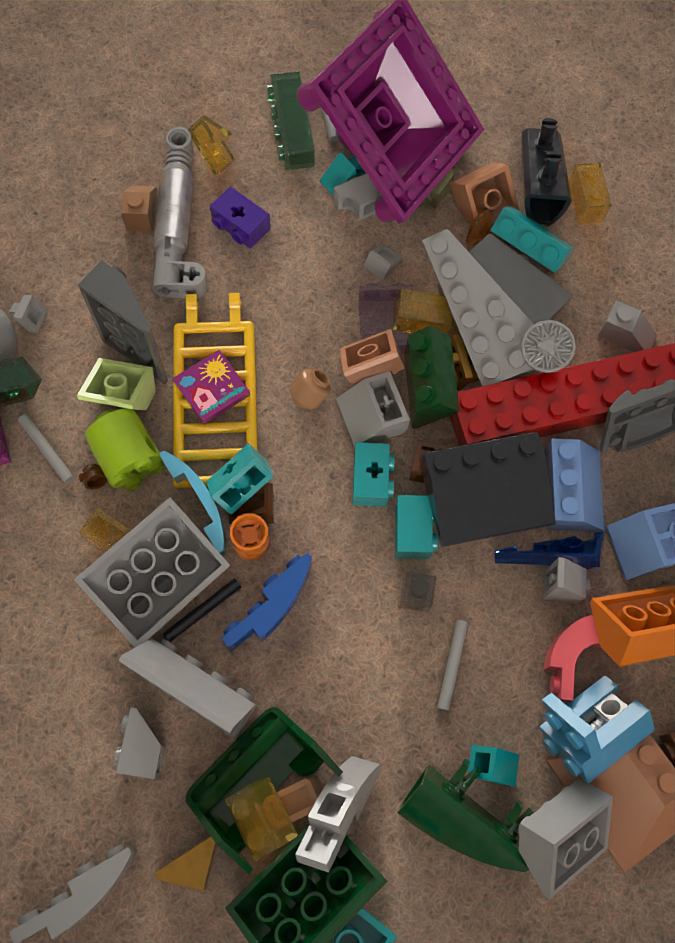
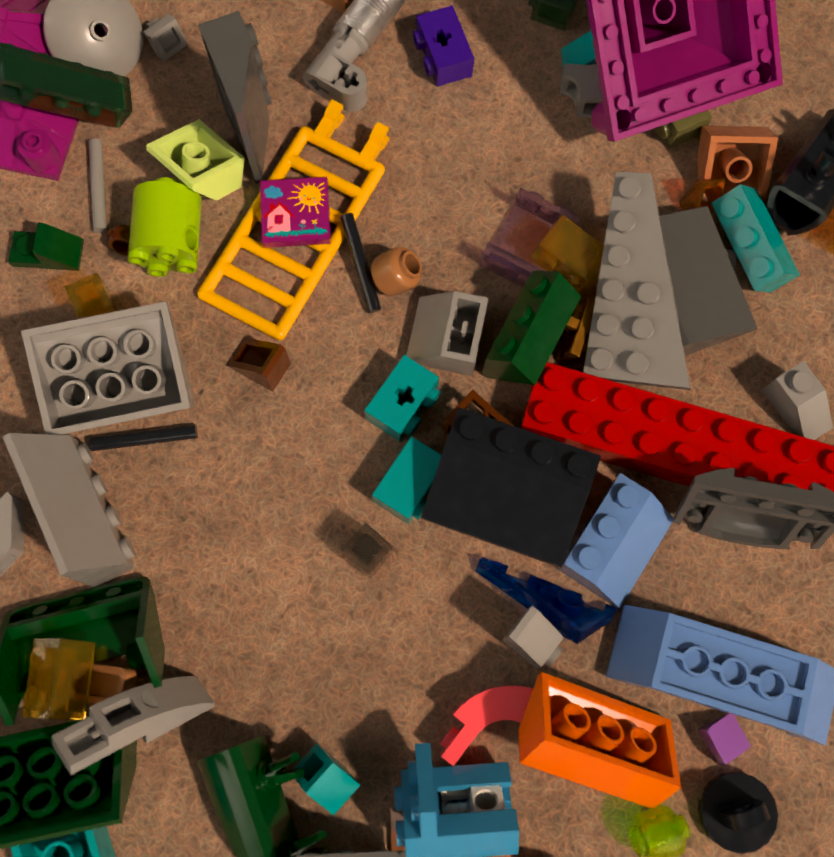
camera: 35 degrees right, 5 degrees up
(38, 516) = (46, 249): none -> dark green slope
(181, 471) = (205, 366): medium azure slope -> none
(239, 479) = (258, 324): teal brick -> none
(249, 536) = (232, 390): orange wheel -> none
(279, 397) = (360, 262): none -> black bar
(280, 596) = (226, 471): blue slope -> none
(371, 357) = (479, 273): nougat slope -> none
(382, 261) = (570, 175): light grey slope -> none
(452, 665) = (357, 649): light grey bar -> none
(548, 346) = (678, 368): light grey wheel -> none

